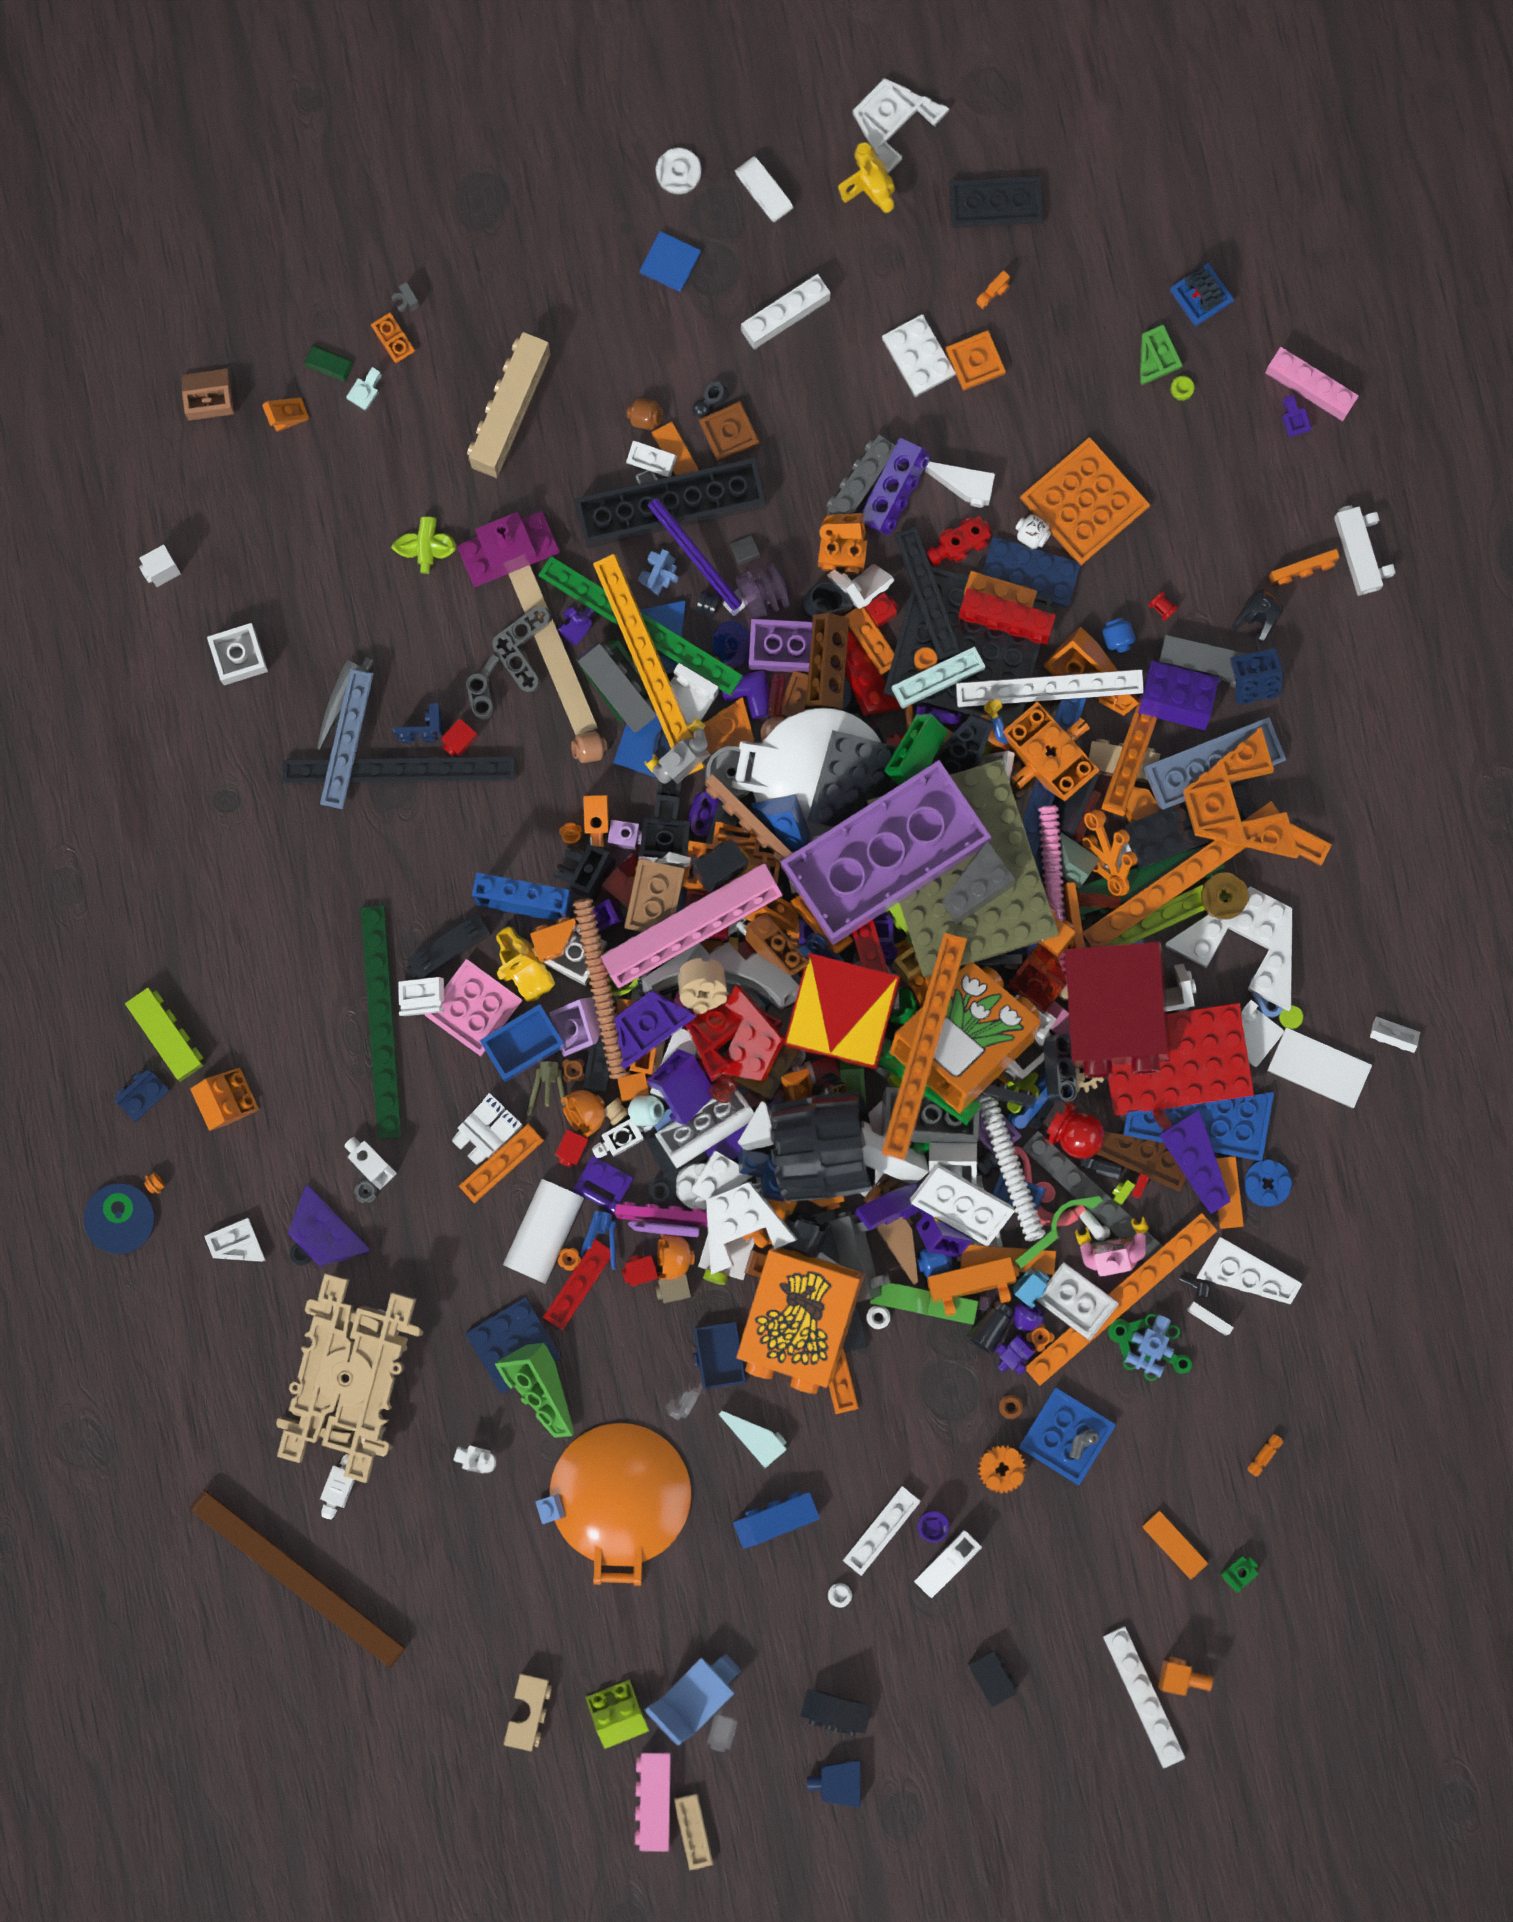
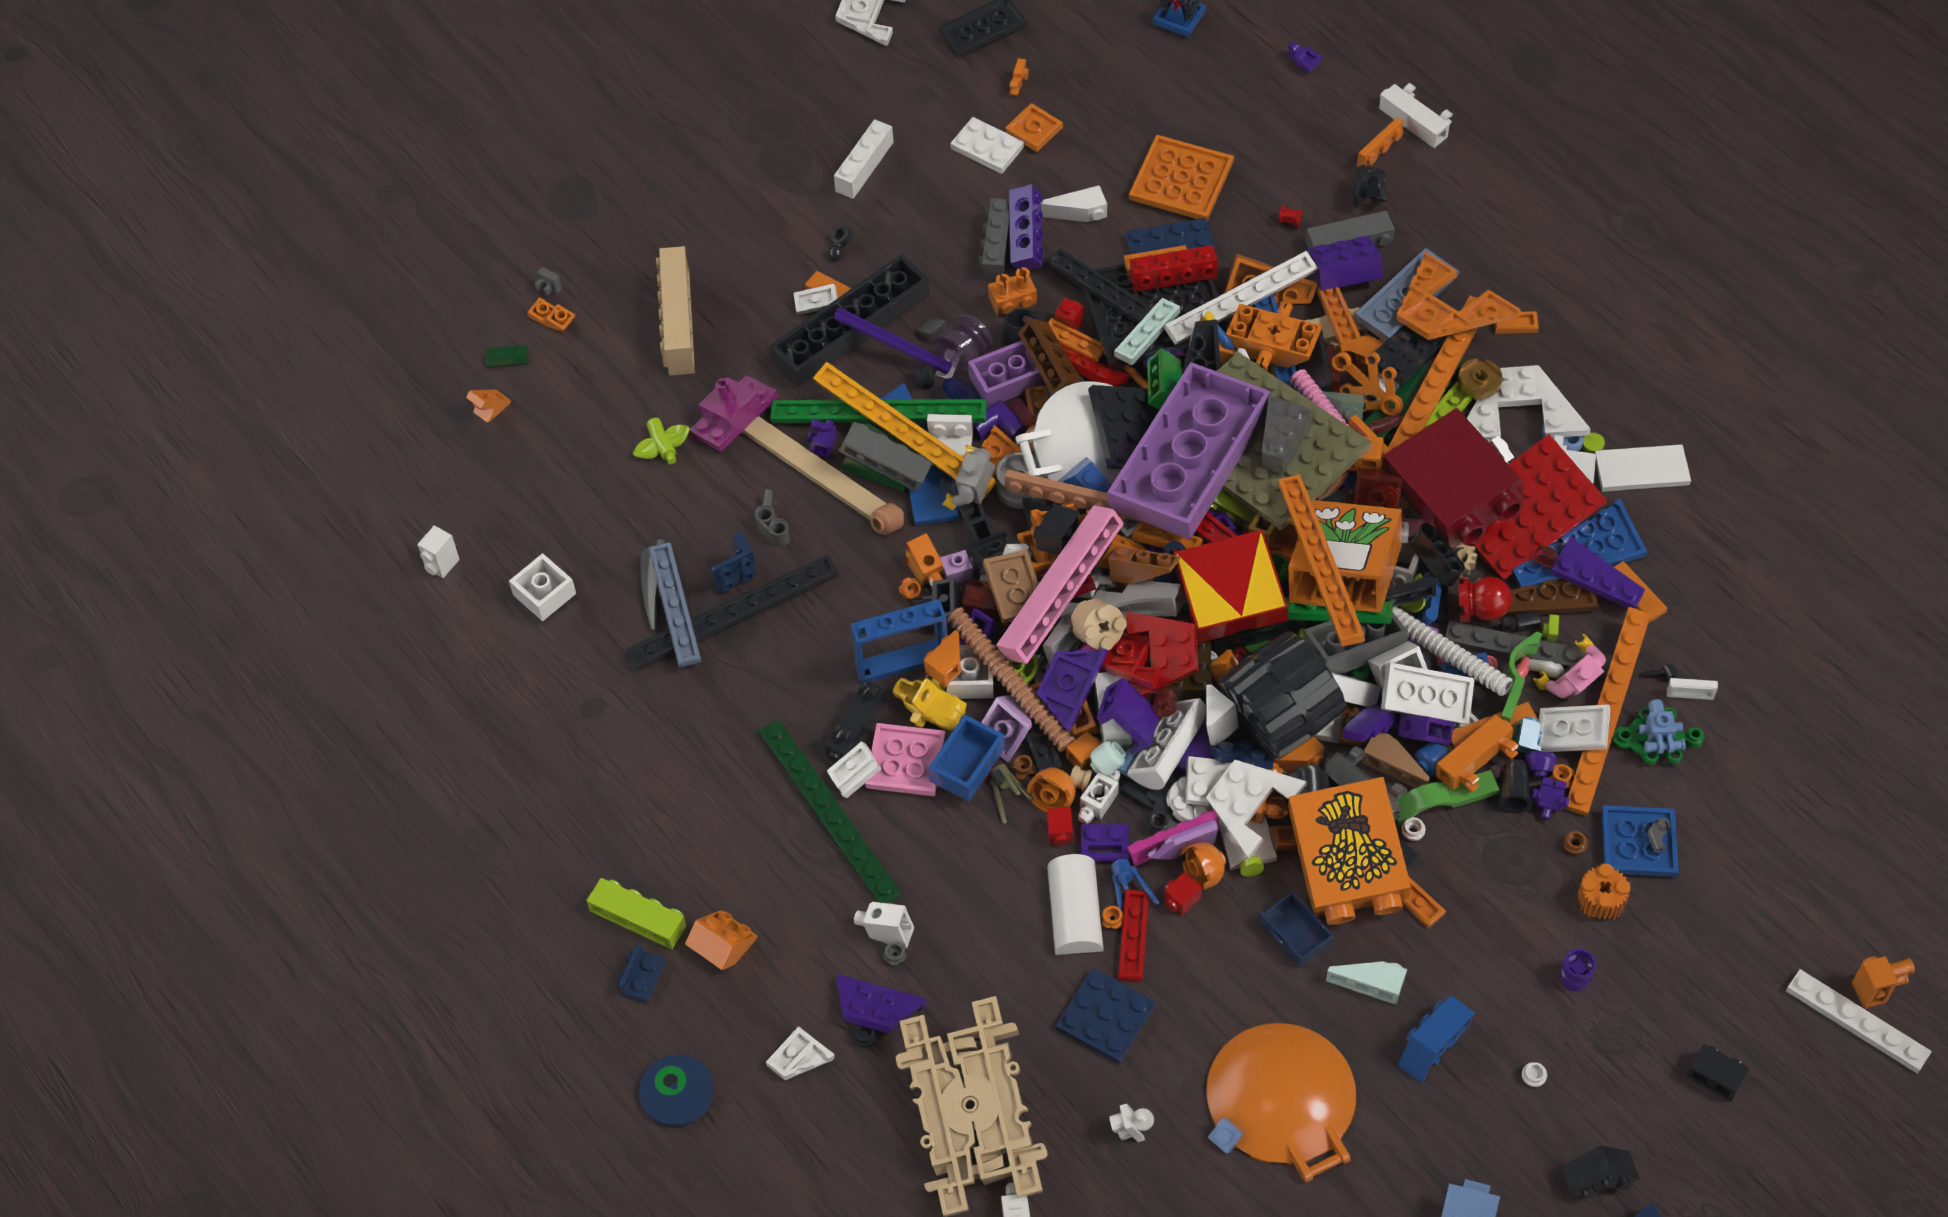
camera: 25 degrees left, 25 degrees down
(154, 1183) = (693, 1042): orange plate -> none
(207, 394) = (415, 419): nougat slope -> none
(364, 392) = (548, 362): light aqua plate -> none
(458, 738) = (771, 562): red brick -> none
(479, 1132) = (974, 855): white hips -> none
(501, 1163) = (1003, 872): orange tile -> none
(515, 643) = (779, 474): dark grey beam -> none
(537, 1380) = (1146, 1027): bright green wedge -> none
(644, 414) = (791, 272): dark orange head -> none
(661, 574) = (874, 371): medium blue hips -> none
(670, 261) = (750, 170): blue tile -> none
(673, 1290) = (1221, 894): dark tan brick -> none
(678, 170) = (721, 112): white tile -> none
(687, 1402) = (1292, 987): clear bracket -> none
(703, 815) = (1013, 519): dark purple plate -> none
(728, 431) = (867, 255): dark orange plate -> none
(764, 189) = (796, 92): white beam -> none
(844, 527) = (1002, 265): orange leg -> none
(864, 586) = (1045, 302): white bracket -> none
(870, 178) = (877, 45): yellow piece -> none
(881, 1530) = (1534, 1000): white plate -> none
(925, 658) = (1126, 325): orange tile -> none
(948, 1563) = (1612, 993): white slope -> none
(966, 539) = (1102, 243): red brick -> none
(1033, 531) = (1154, 211): white head -> none
(1119, 635) = (1269, 248): blue head -> none
(1139, 1186) = (1564, 622): red tile -> none
(1157, 355) = (1172, 64): bright green wing -> none
(1174, 1545) = (1792, 882): orange tile -> none
(1182, 388) = (1205, 78): lime tile -> none
(1231, 1576) = (1864, 874): green brick -> none
(1241, 1270) = (1693, 641): white wing -> none
(1257, 676) = (1400, 222): dark blue bracket -> none
(1265, 1455) = (1814, 772): orange axle -> none
(1281, 1183) = (1663, 558): blue plate -> none
(1311, 384) = (1302, 29): bright pink brick -> none
(1395, 1034) = (1675, 416): white plate -> none

